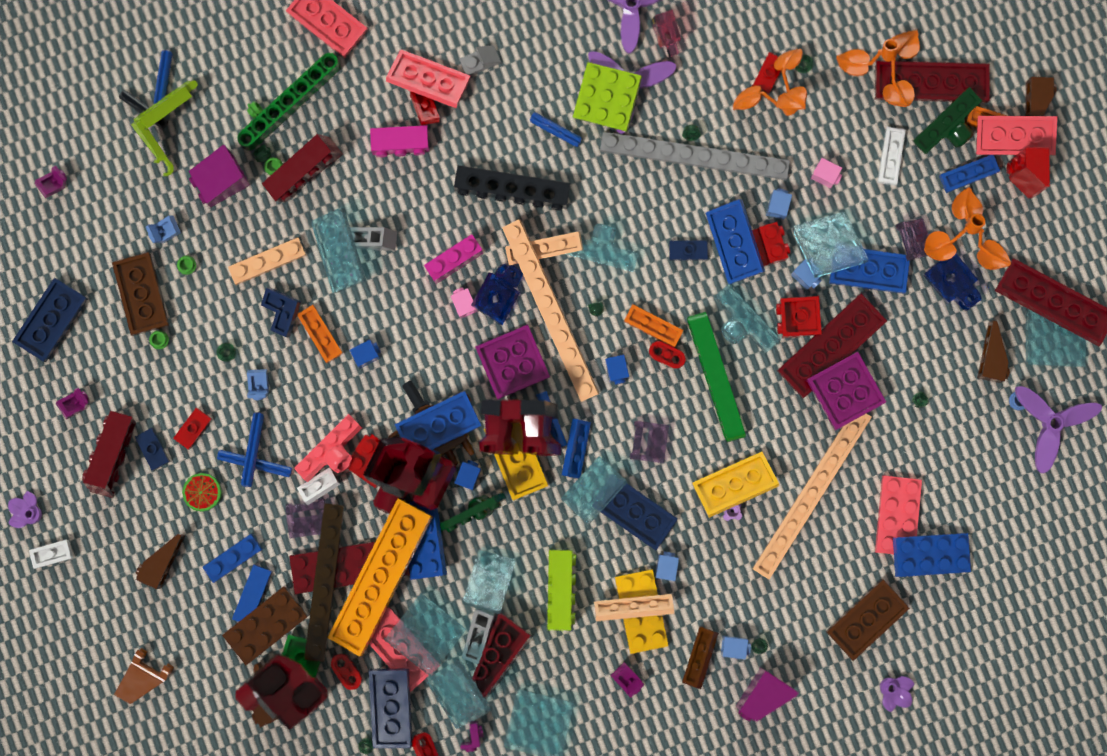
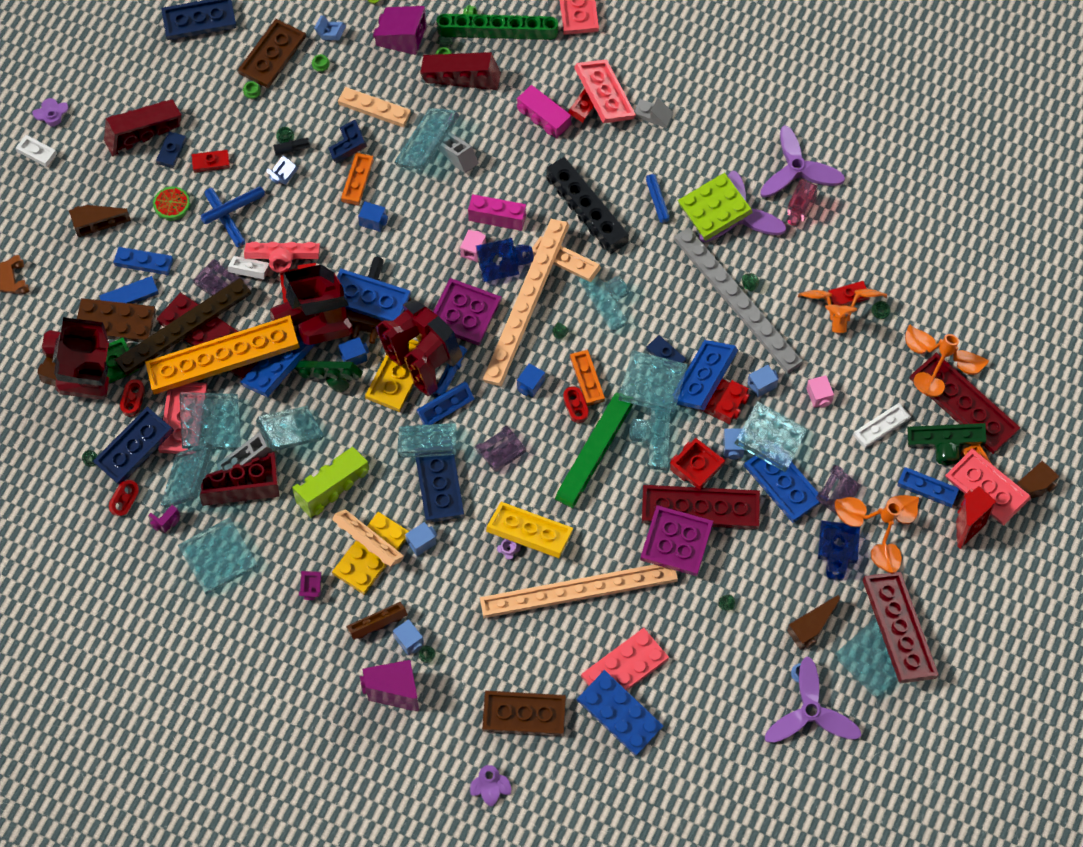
camera: 45 degrees right, 20 degrees down
(73, 403) = (154, 77): magenta bracket -> none
(241, 356) = (291, 146): none -> black axle
(706, 284) = (653, 382): none -> clear light blue plate

